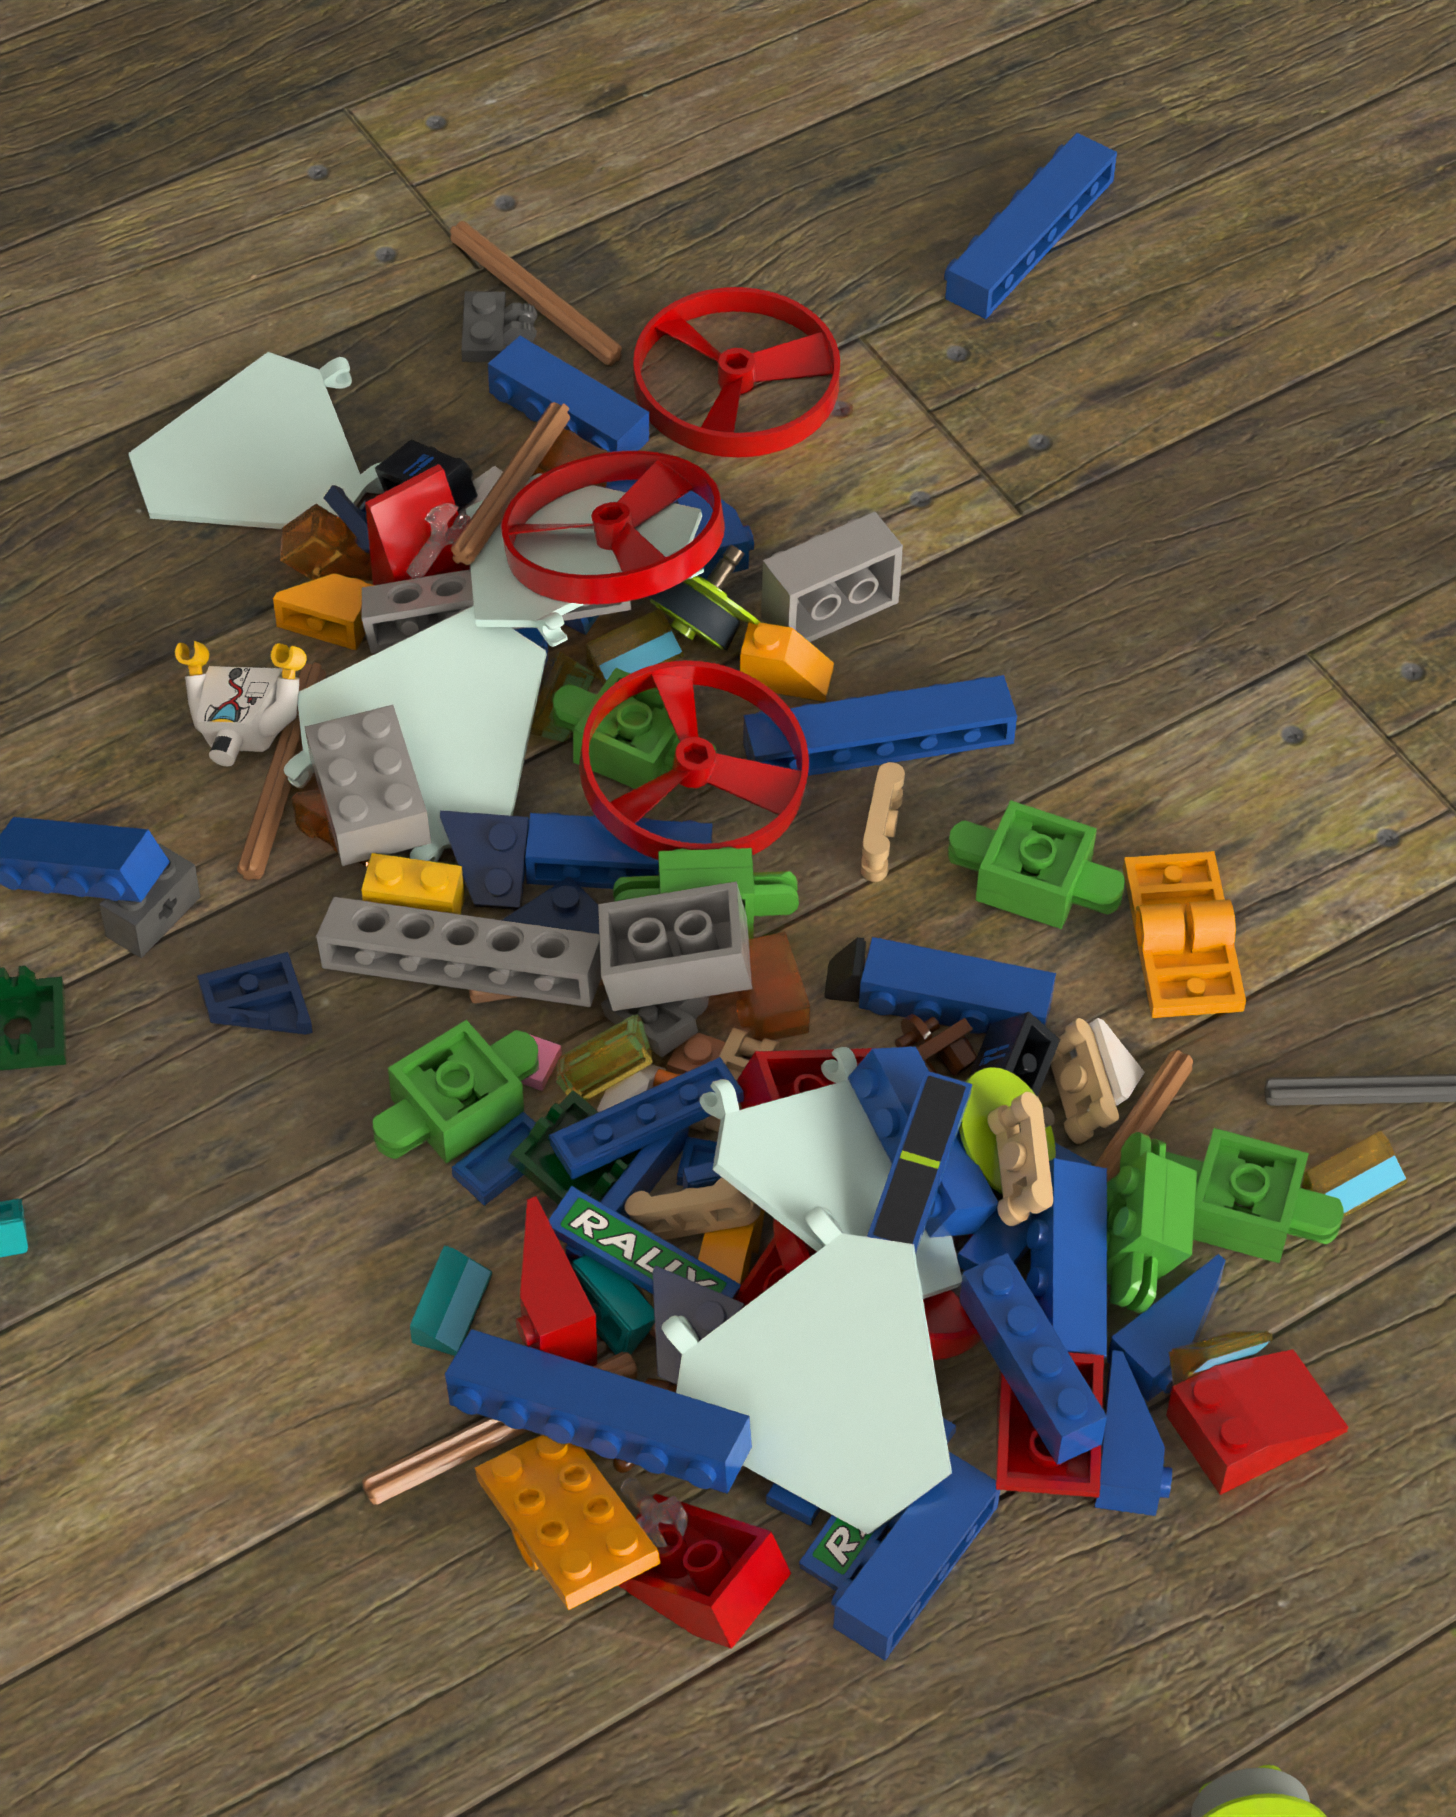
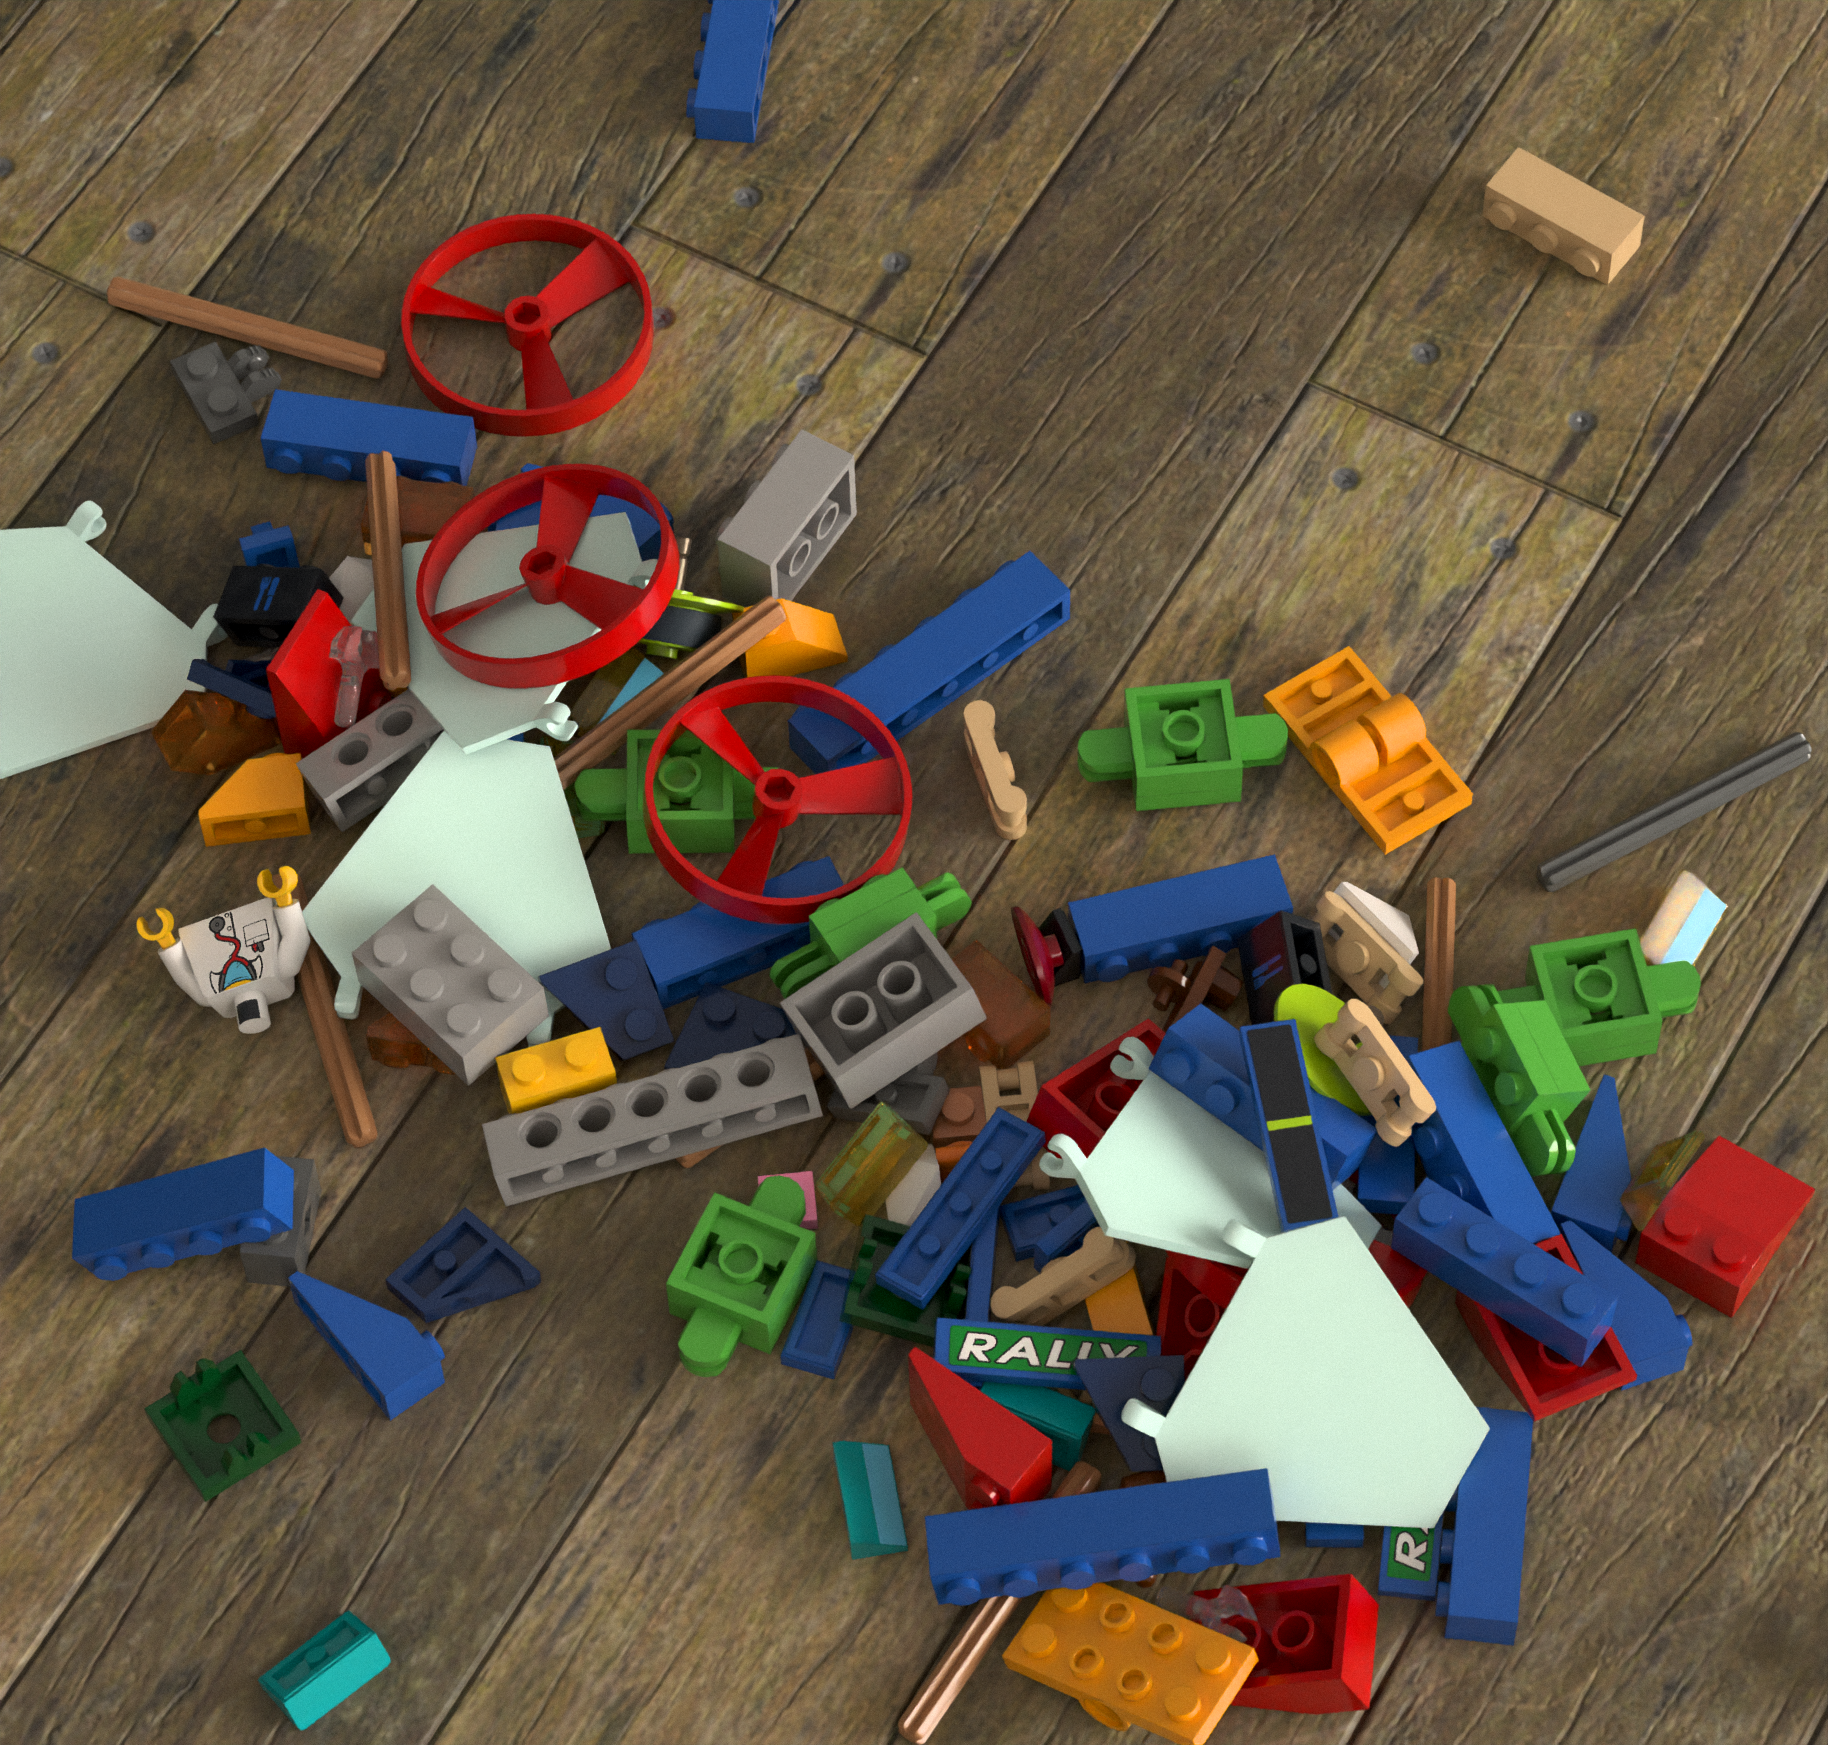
camera: 25 degrees left, 5 degrees up
(161, 1020) = (374, 1344): none -> blue slope
(448, 439) = (269, 546): none -> blue tile
(683, 648) = (669, 689): none -> medium nougat axle
(824, 965) = (1039, 954): none -> dark red dish

